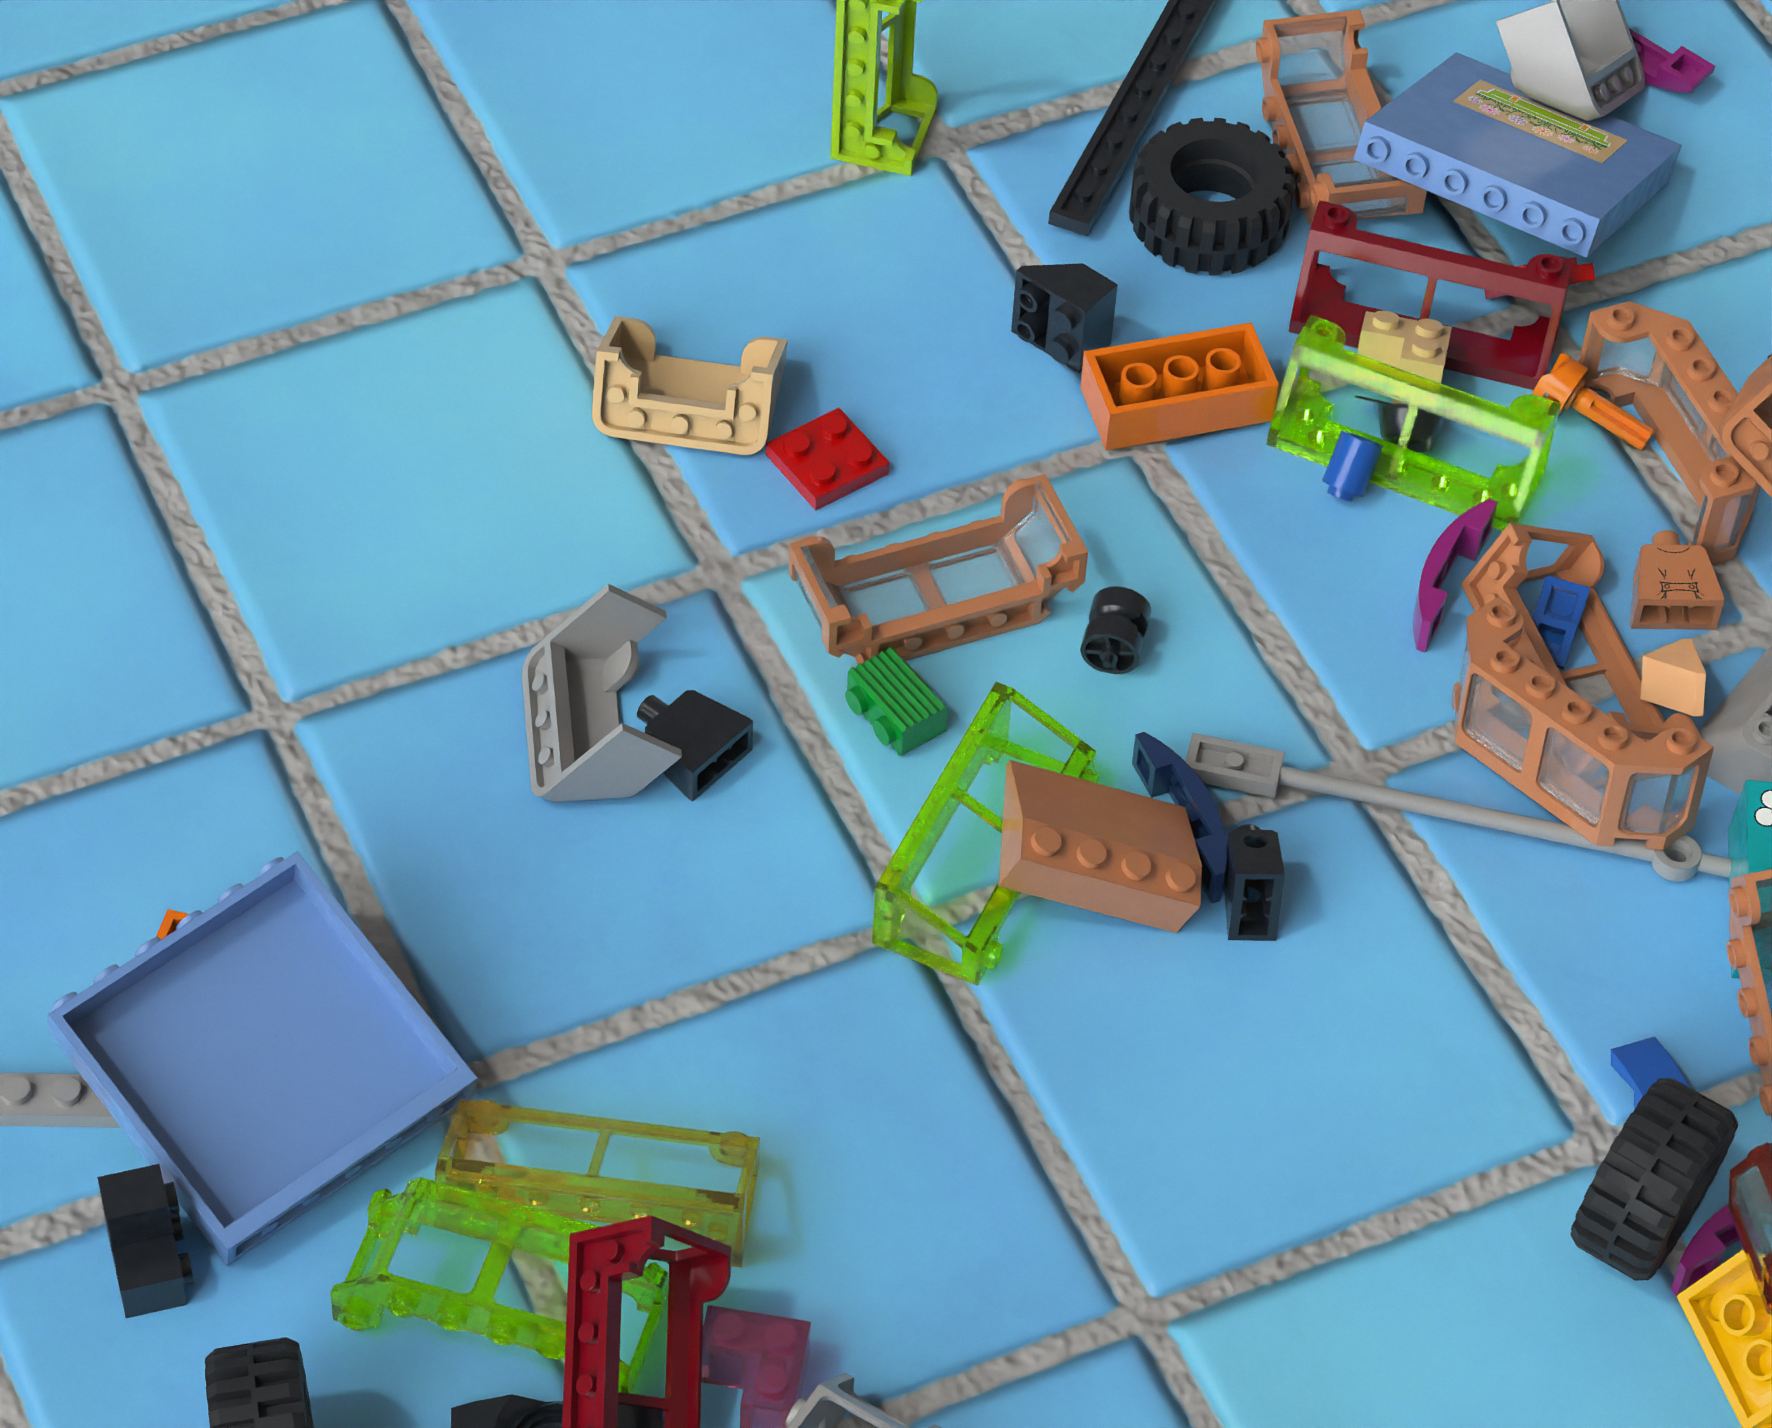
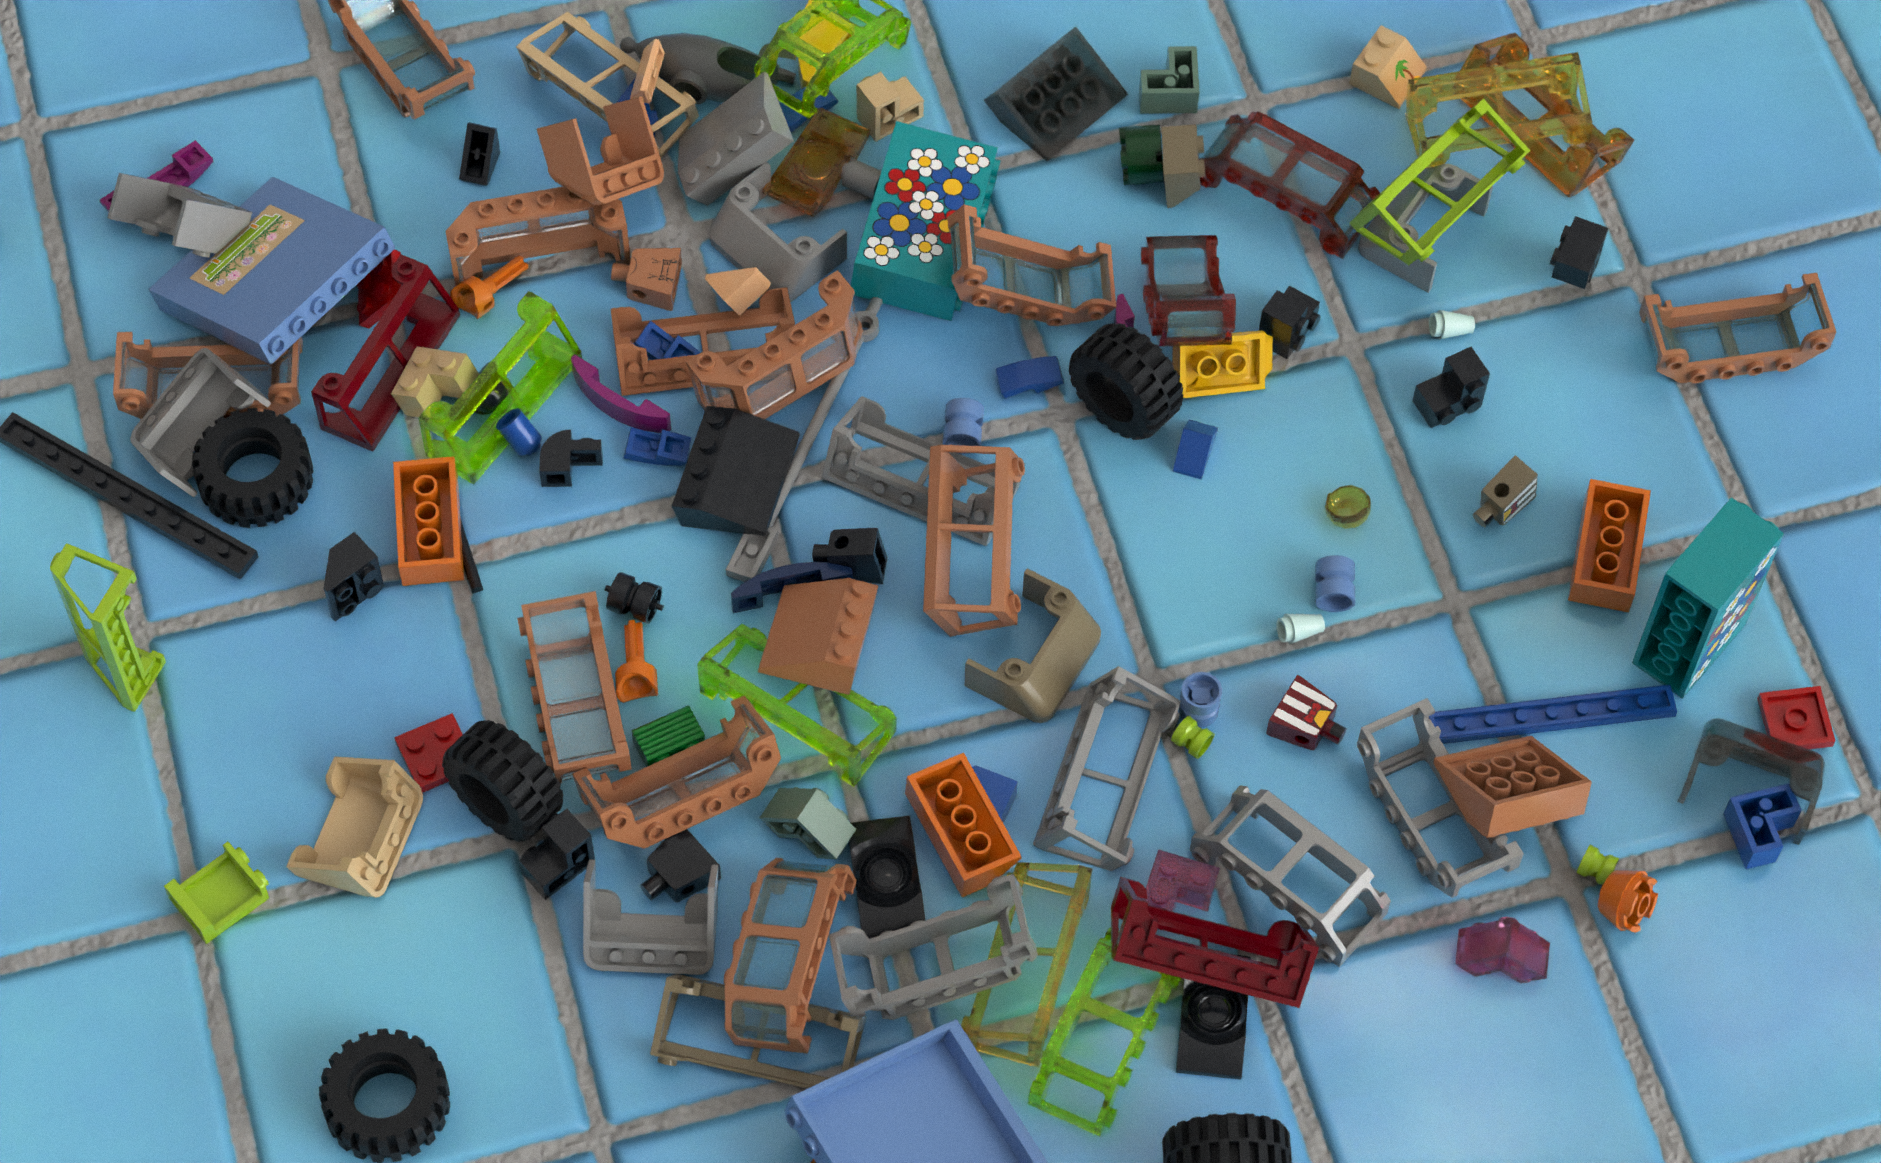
camera: 80 degrees left, 10 degrees up
(304, 503) = (378, 1056): none -> black tyre
(473, 940) = (670, 1052): none -> dark tan windscreen
(557, 1090) = (951, 984): none -> light grey windscreen
(569, 844) = (781, 953): none -> windscreen
(572, 267) = (219, 893): none -> lime panel
(692, 592) = (560, 856): none -> black brick
(722, 993) = (886, 875): none -> black slope
(763, 492) = (502, 780): none -> black tyre
(781, 873) = (811, 819): none -> sand green brick
(797, 700) = (687, 784): none -> nougat windscreen
(811, 1056) = (961, 823): none -> orange slope
(816, 1291) = (1058, 817): none -> light grey windscreen
(875, 1110) = (999, 789): none -> blue slope
(984, 649) = (635, 677): none -> orange piece
(1036, 1377) = (1192, 737): none -> lime wheel
(1106, 1371) = (1200, 698): none -> medium blue wheel
(1136, 1163) = (1040, 687): none -> dark tan windscreen
(1143, 452) = (469, 564): none -> black bar
(1294, 113) = (185, 409): none -> light grey windscreen
(1329, 519) = (562, 453): none -> black brick
(1357, 714) = (734, 472): none -> black slope
(1366, 1014) = (850, 472): none -> light grey windscreen
(1383, 632) = (657, 449): none -> blue slope
(1415, 955) = (946, 478): none -> nougat windscreen
(1528, 997) = (963, 423): none -> medium blue wheel
(1595, 1332) = (1194, 449): none -> blue slope

